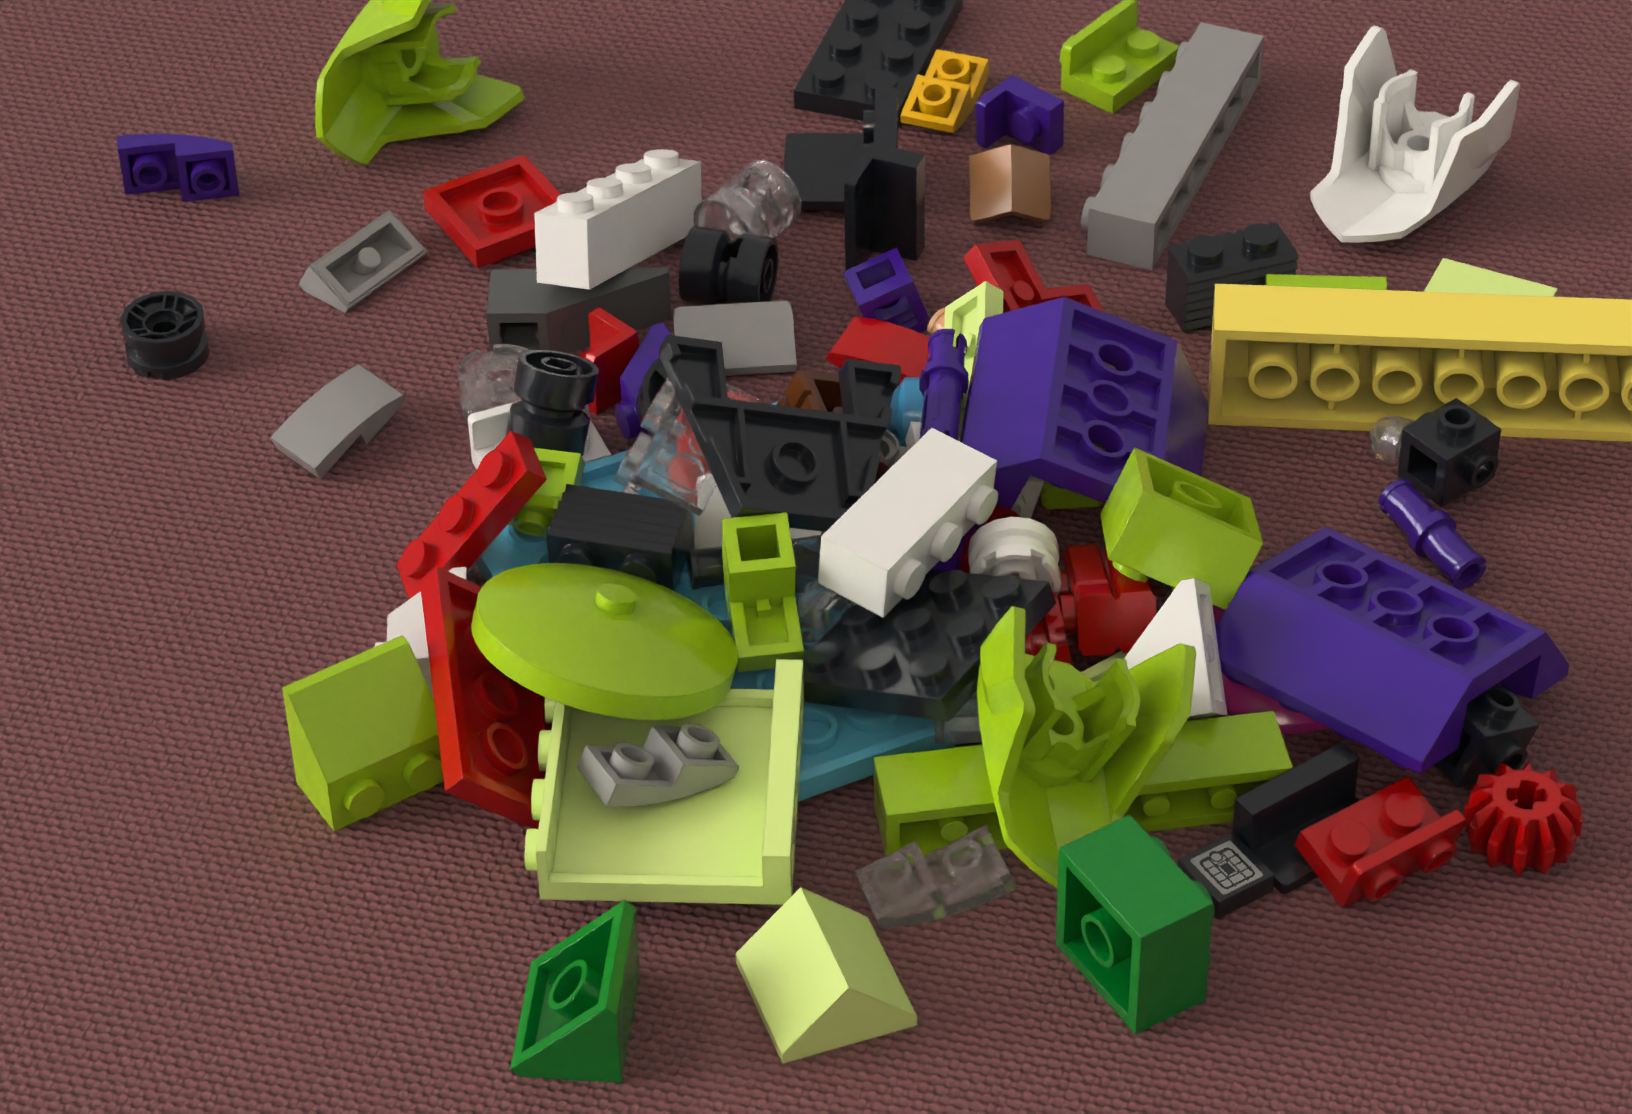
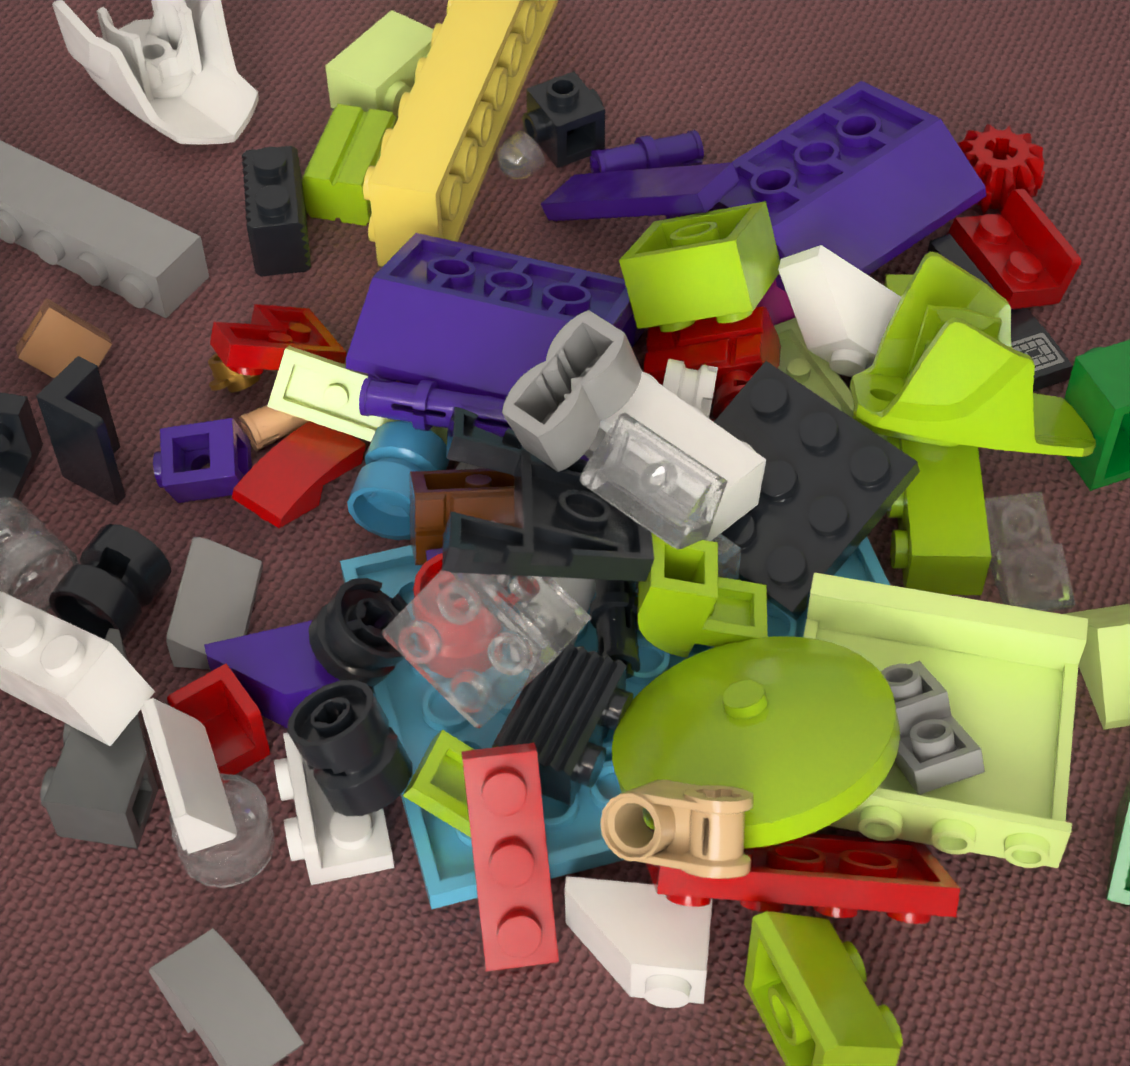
camera: 80 degrees left, 10 degrees up
(463, 562) = (693, 826): none -> tan piece
(519, 322) = (189, 777): none -> white slope
(828, 498) = (654, 483): none -> clear slope
(893, 401) = (582, 382): none -> light grey brick
(1314, 499) = (641, 192): none -> dark purple tile

